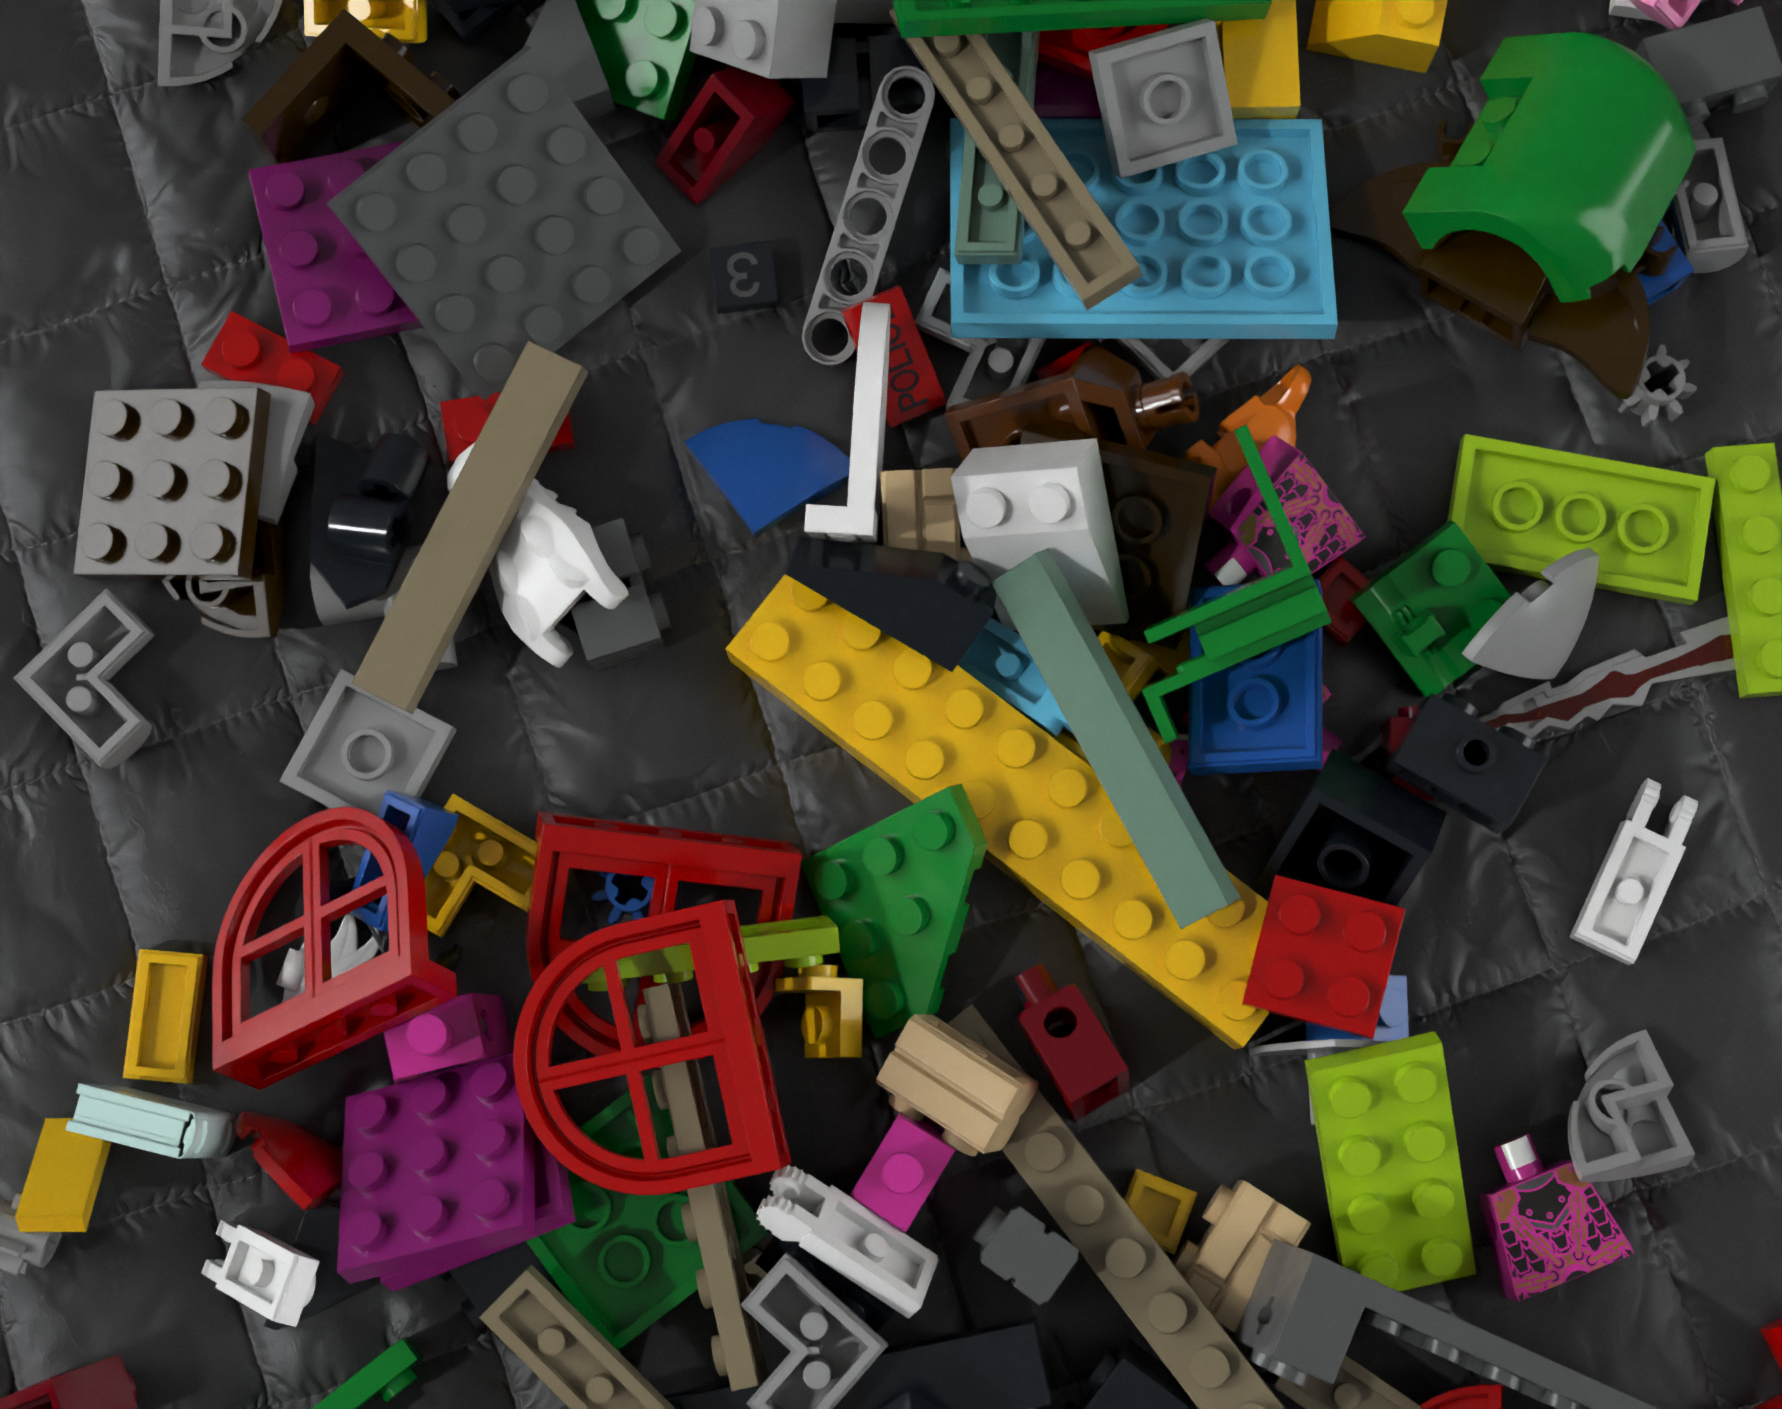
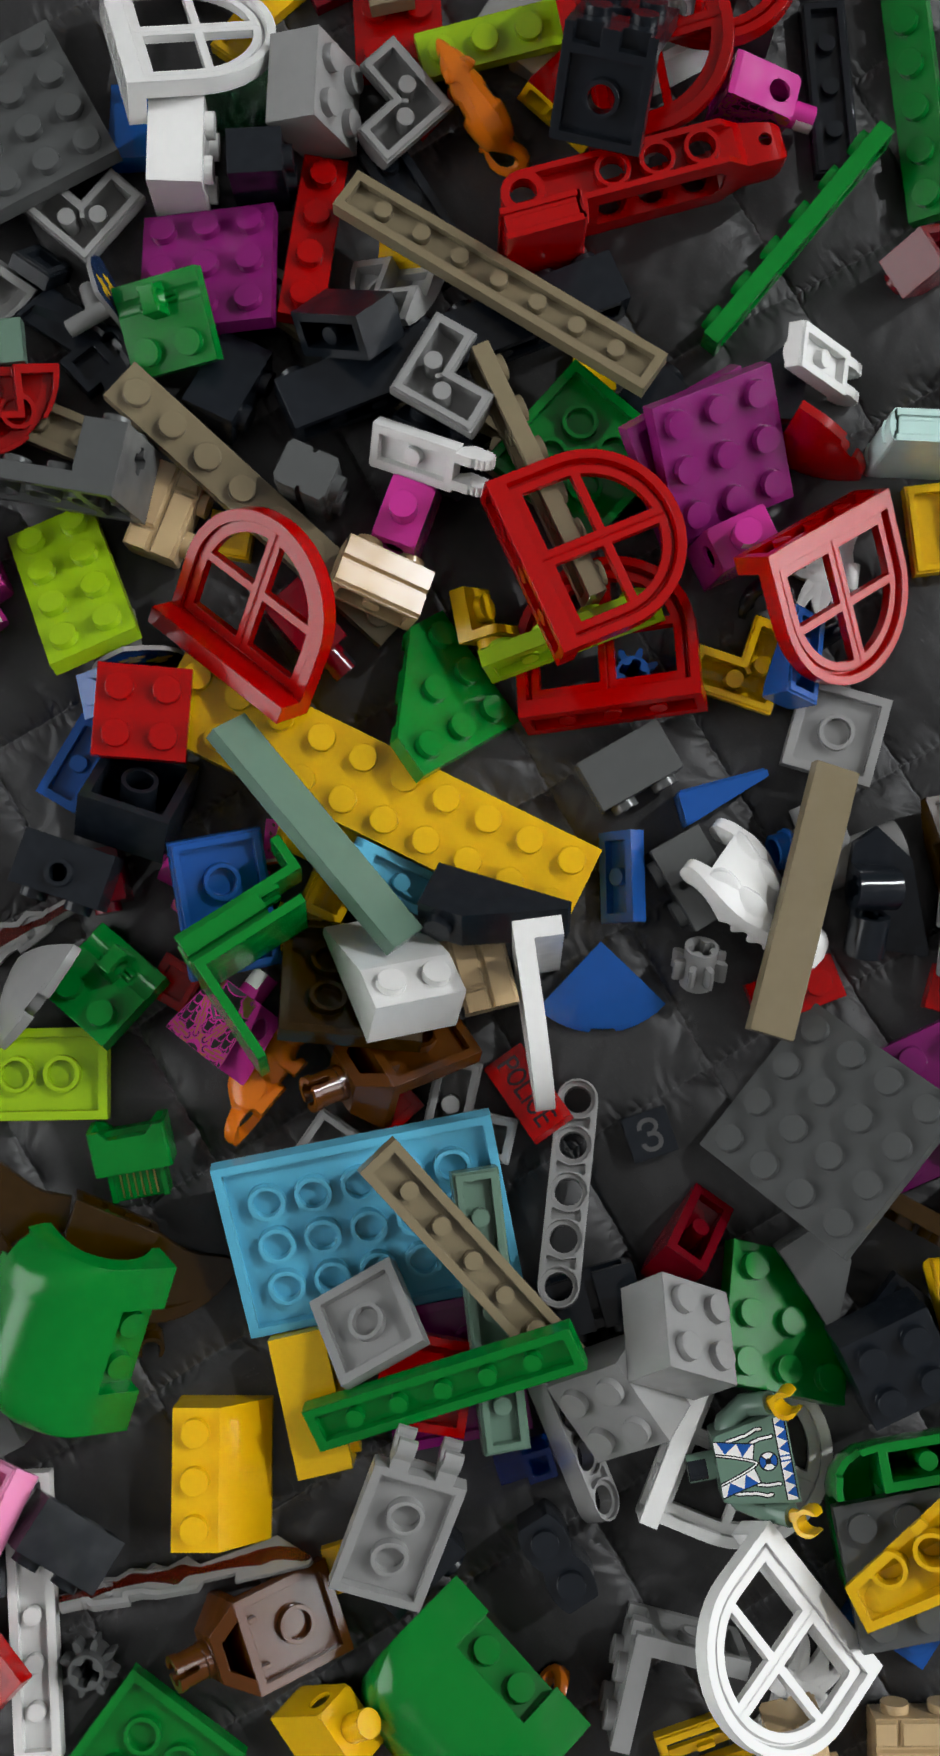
camera: 170 degrees right, 5 degrees up
(482, 614) = (779, 846): none -> blue plate
(561, 700) = (702, 799): none -> blue slope
(628, 478) = (699, 965): none -> light grey gear
(662, 760) = (628, 768): none -> dark grey piece
(705, 616) = (622, 876): none -> blue plate
(1185, 1022) = (232, 652): none -> red window
(1434, 917) = (70, 767): none -> blue plate
(1437, 381) = (134, 1156): none -> green piece

